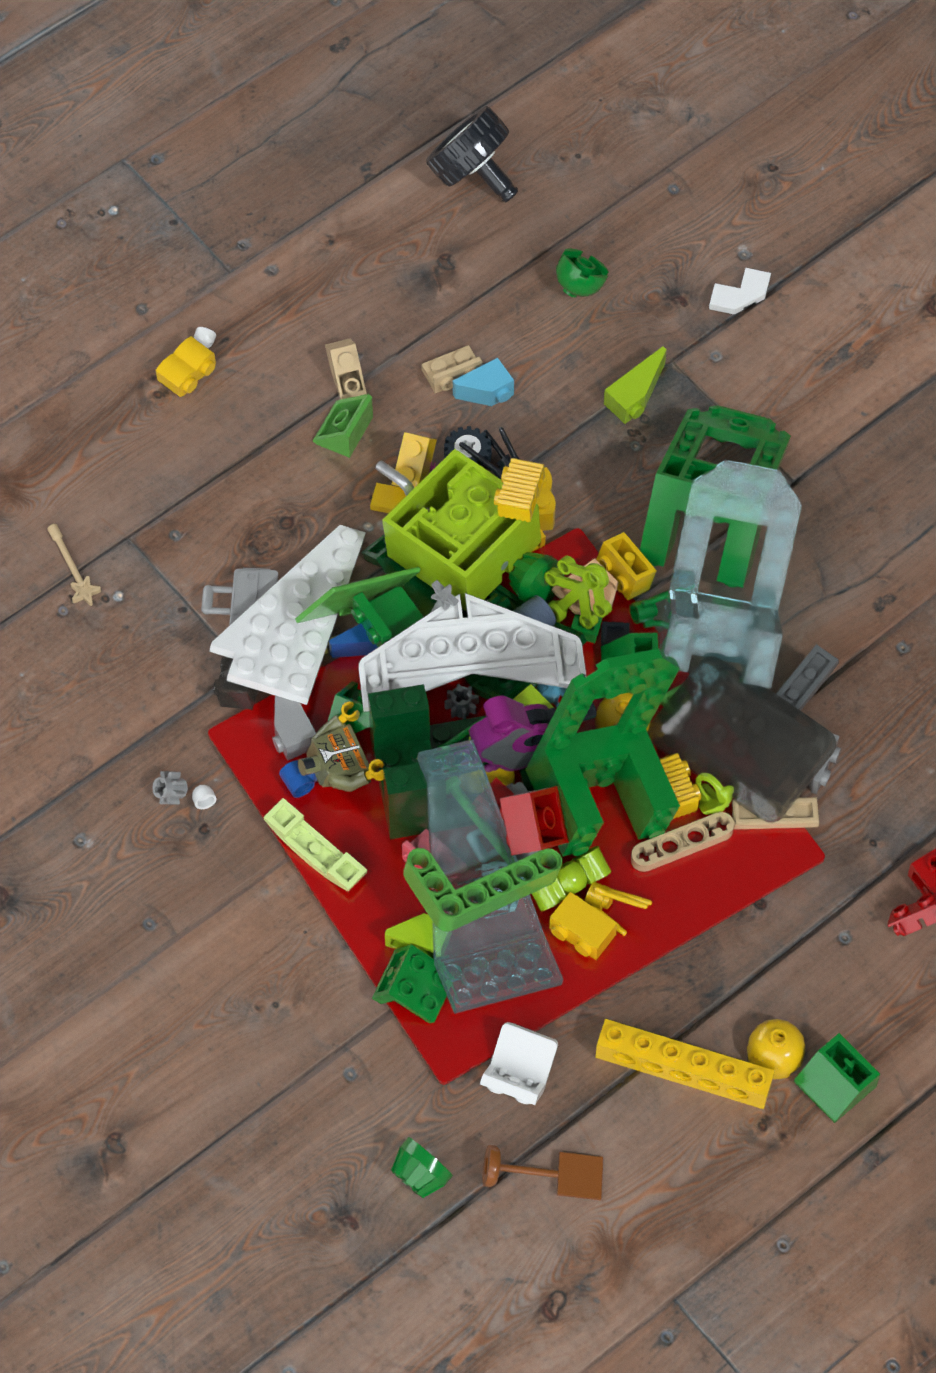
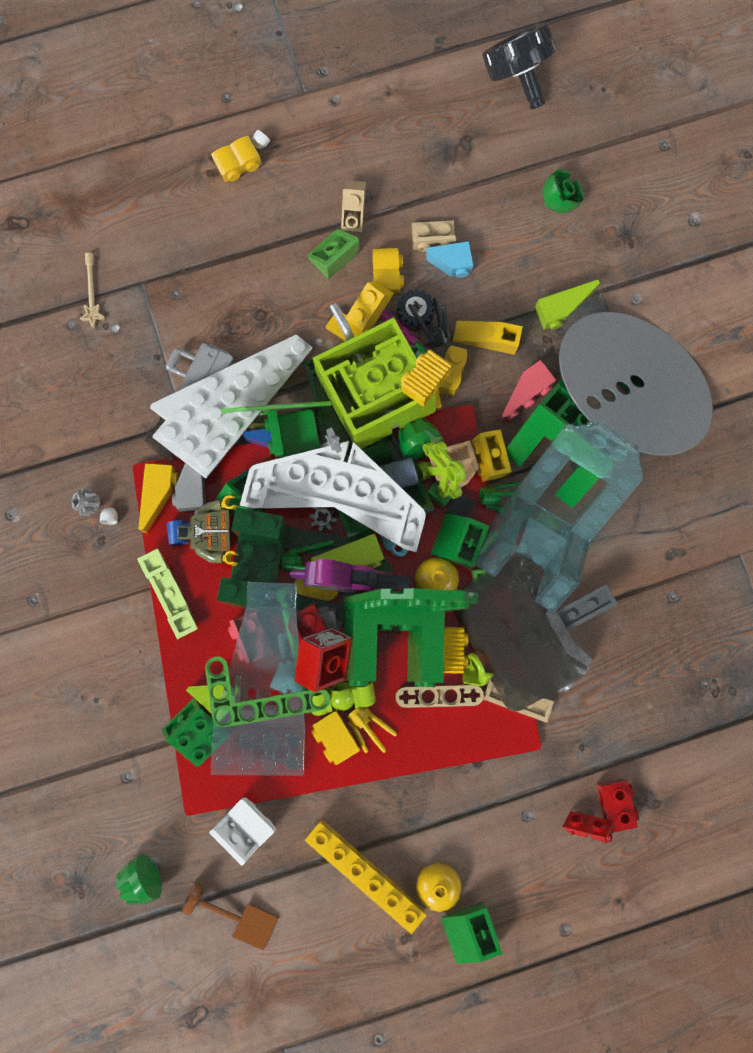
camera: 20 degrees right, 20 degrees up
(251, 736) = (156, 491): none -> yellow slope
(414, 416) = (386, 268): none -> yellow brick
(568, 446) = (488, 335): none -> yellow slope
(636, 488) = (532, 383): none -> coral slope
(734, 299) = (670, 257): white tile -> none
(799, 433) = (662, 416): none -> light grey piece

